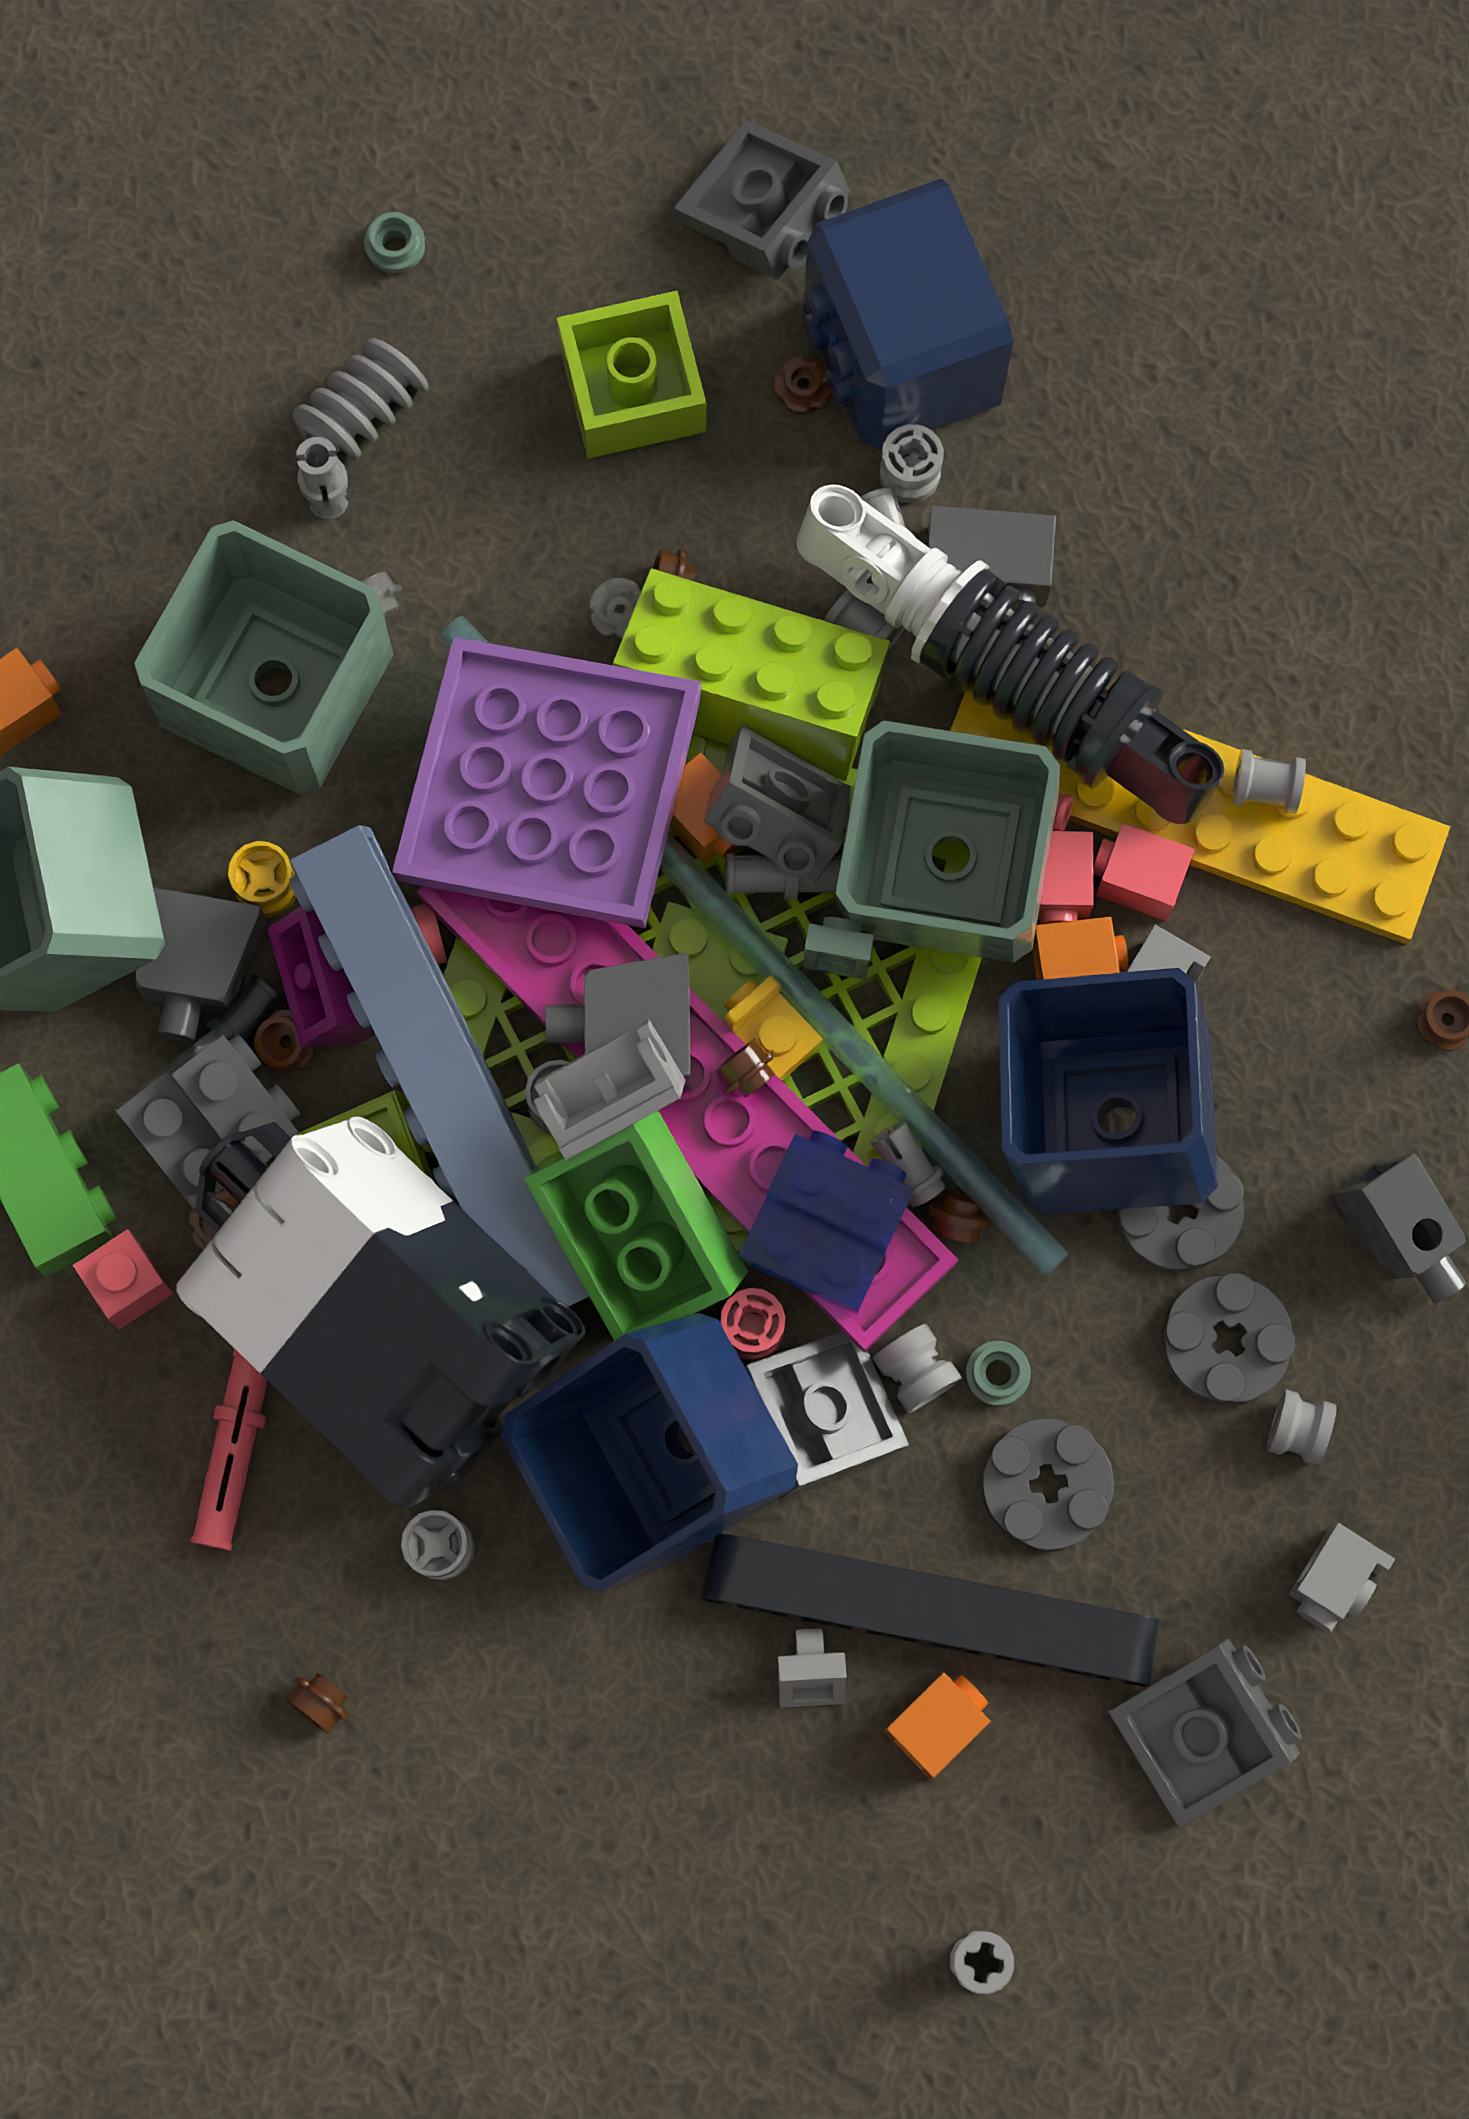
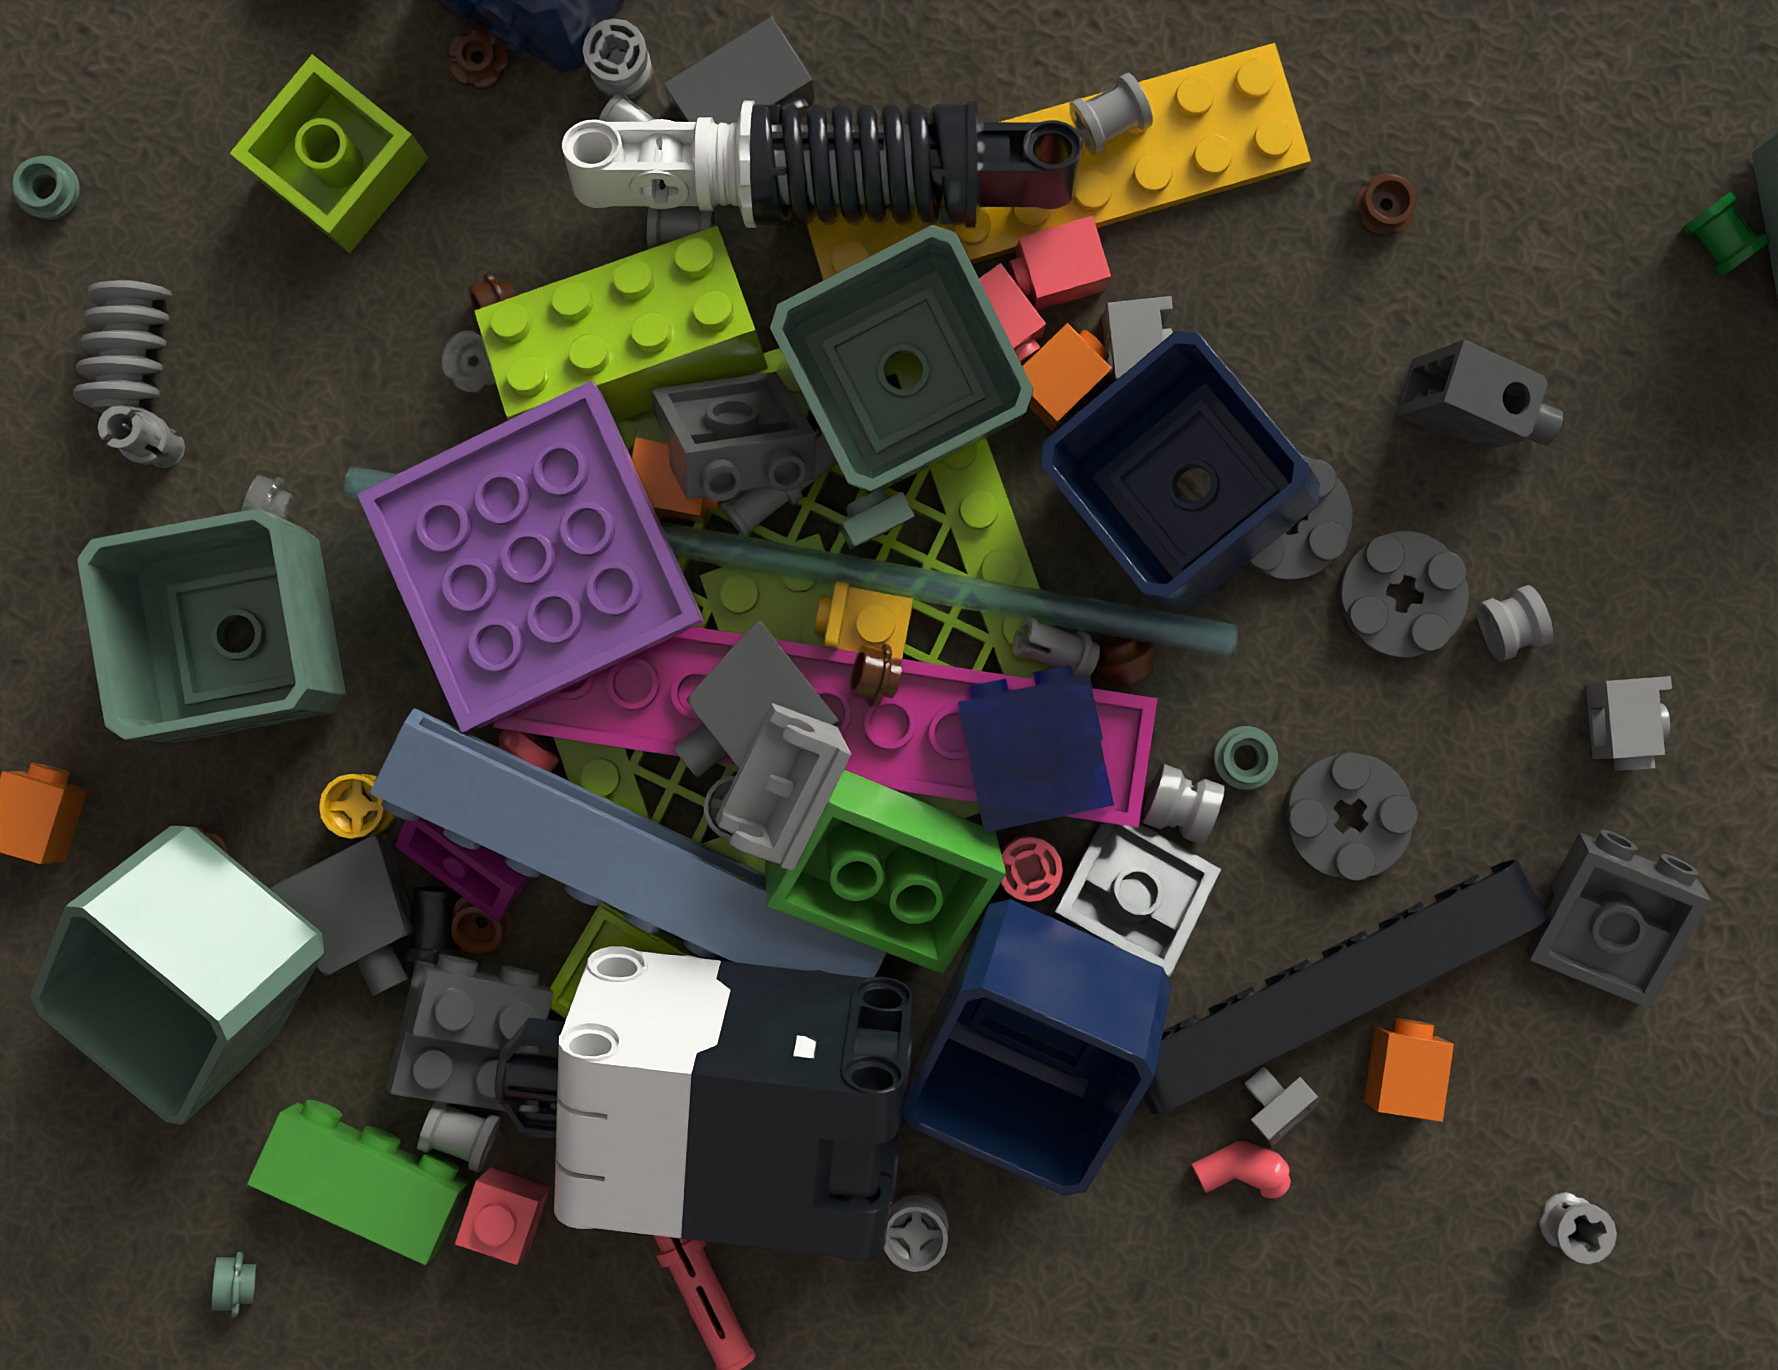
camera: 35 degrees left, 10 degrees up
(138, 1191) = (459, 1134): none -> light grey bush
(748, 1702) = (1247, 1163): none -> coral arm

